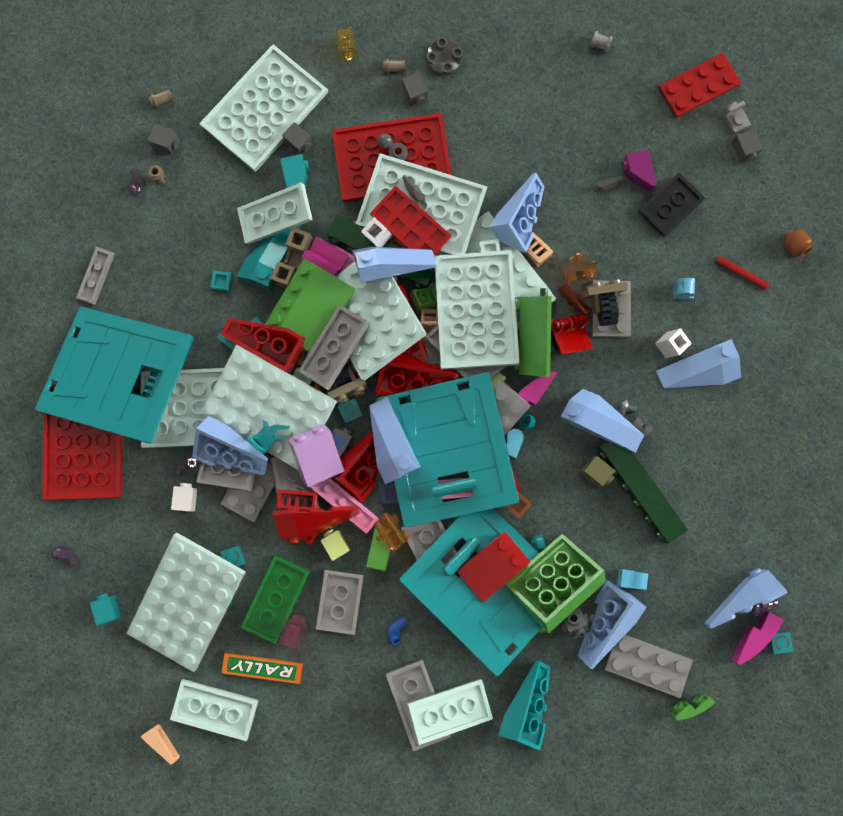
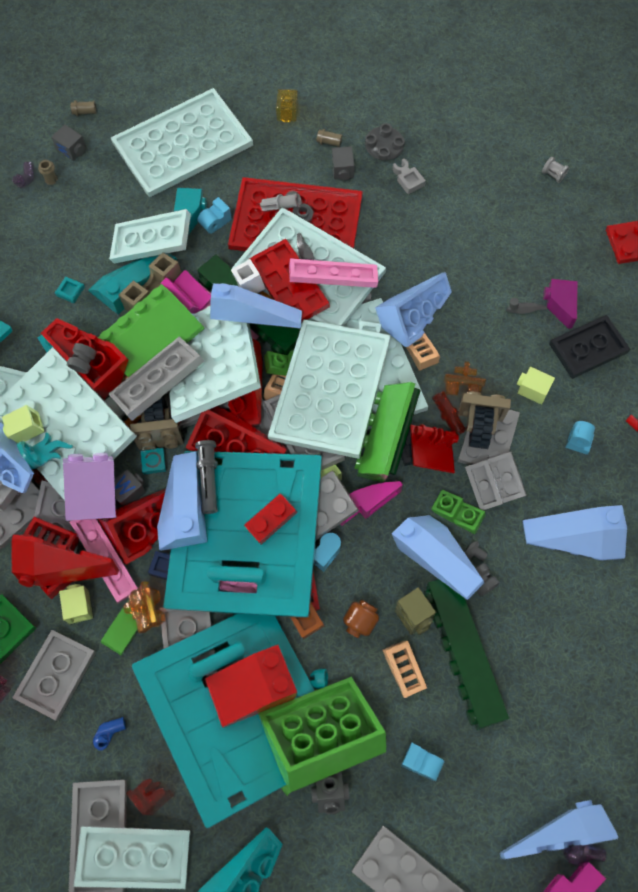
camera: 15 degrees right, 15 degrees down
(240, 419) = (22, 424): none -> yellowish green brick
(267, 349) = (81, 358): none -> dark grey wheel
(297, 139) = (204, 176): dark grey brick -> none
(321, 175) = (215, 216): none -> medium azure leg
(376, 148) = (281, 201): none -> light grey axle
(400, 406) = (206, 465): none -> dark grey pin
(446, 669) = (149, 799): none -> clear red hinge
(447, 208) = (333, 273): none -> bright pink plate
(465, 435) = (270, 518): none -> red plate
(476, 87) = (408, 178): none -> light grey plate
(523, 420) = (352, 532): teal hinge -> none
(556, 488) = (361, 619): none -> dark orange head
(584, 506) = (388, 652): none -> light nougat slope
(604, 379) = (456, 511): none -> bright green slope
(614, 617) = (383, 806): light blue wedge -> none
(627, 346) = (495, 481): none -> light grey slope
(636, 253) = (535, 385): none -> yellowish green brick
(673, 343) = (550, 491): white brick -> none

